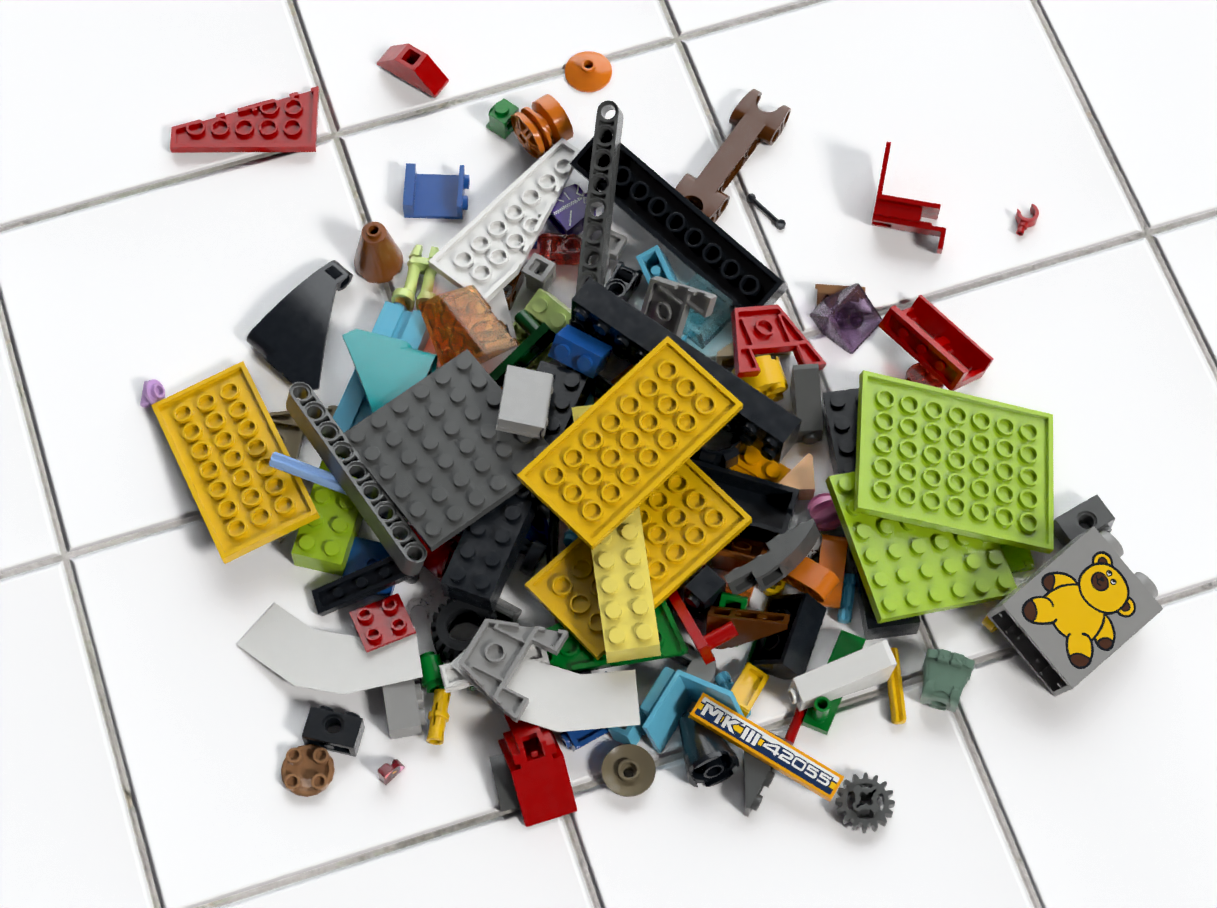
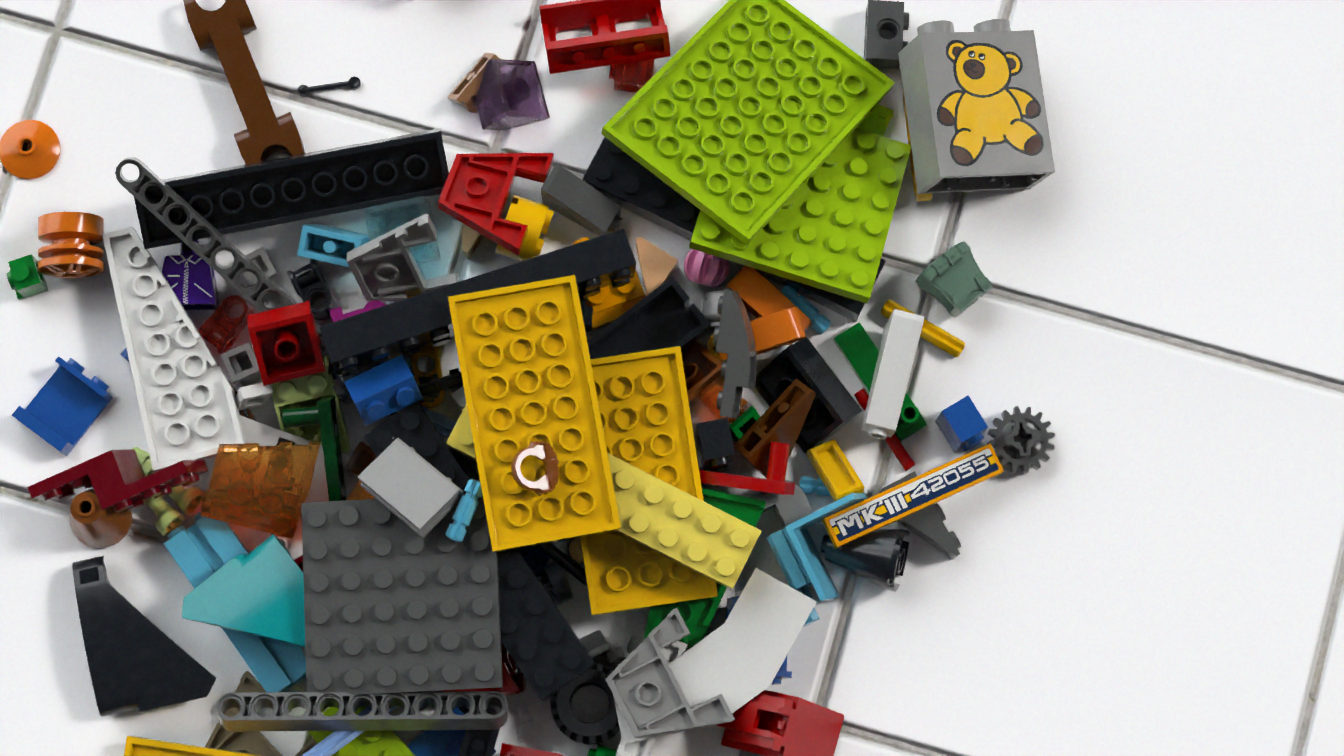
camera: 60 degrees left, 15 degrees up
(408, 244) = (118, 480): none -> dark red bracket
(521, 288) = (253, 396): none -> white tile
(531, 444) = (465, 511): none -> medium azure axle
(565, 276) = (286, 343): none -> red brick
(585, 475) = (544, 452): none -> dark orange piece
(628, 758) = (852, 628): dark tan dish -> none
(843, 748) = (962, 425): none -> blue brick

